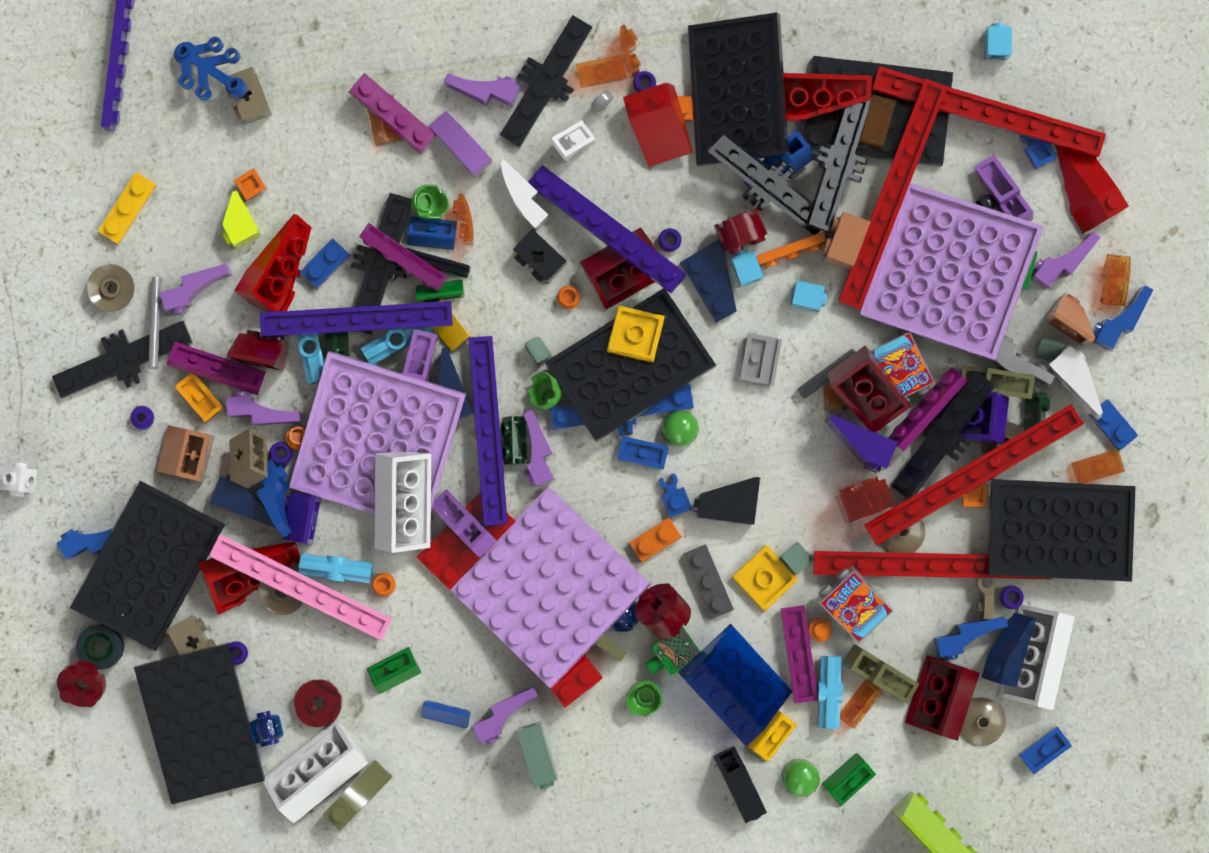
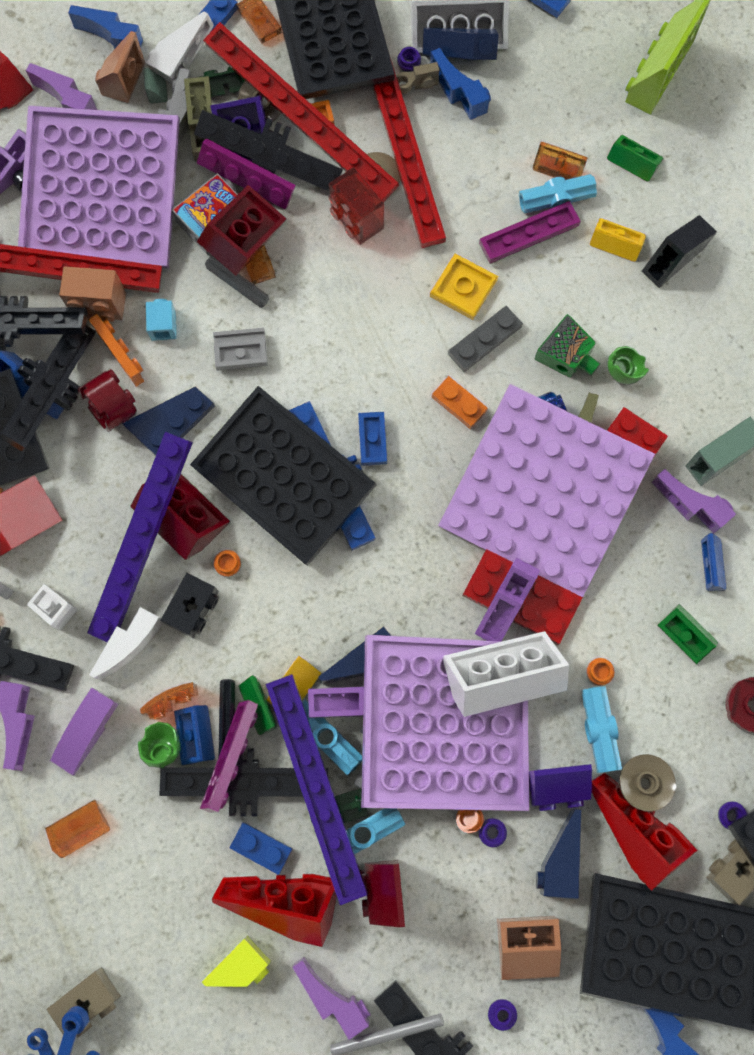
camera: 100 degrees left, 10 degrees down
(199, 397) = (457, 951): light orange plate -> none
(216, 368) = (419, 942): magenta plate -> none
(242, 405) = (452, 894): medium lavender slope -> none
(248, 458) = (513, 867): dark tan brick -> none
(250, 184) = (190, 967): orange plate -> none
(274, 496) = (544, 825): blue slope -> none
(300, 587) = (638, 765): bright pink plate -> none
(392, 113) = (65, 821): magenta plate -> none
(487, 431) = (398, 605): dark purple plate -> none
(512, 450) = (411, 574): dark green hinge -> none
(537, 350) = (295, 580): sand green slope -> none
(538, 470) = (422, 541): medium lavender slope -> none
(544, 391) = (337, 557): bright green hair -> none
(635, 334) = (247, 476): yellow tile -> none
(662, 611) = (533, 366): dark red brick -> none
(673, 233) = (131, 470): dark purple plate -> none
(675, 499) = (410, 394): blue plate -> none
(679, 428) = (335, 410): bright green hair -> none
(730, 503) = (397, 336): black slope -> none
(736, 684) = (583, 277): clear blue slope -> none
(746, 267) = (147, 387): medium azure brick -> none
(796, 558) = (435, 261): sand green slope -> none
(800, 777) = (650, 200): bright green hair -> none
(820, 629) = (498, 219): orange plate -> none
(854, 603) = (463, 189): brick -> none
(864, 444) = (300, 221): dark purple slope -> none
(880, 674) = (523, 153): olive slope -> none
(942, 698) = (528, 93): dark red slope -> none
(995, 725) = (536, 65): dark tan dish -> none
(1116, 282) = (64, 44): clear orange slope -> none

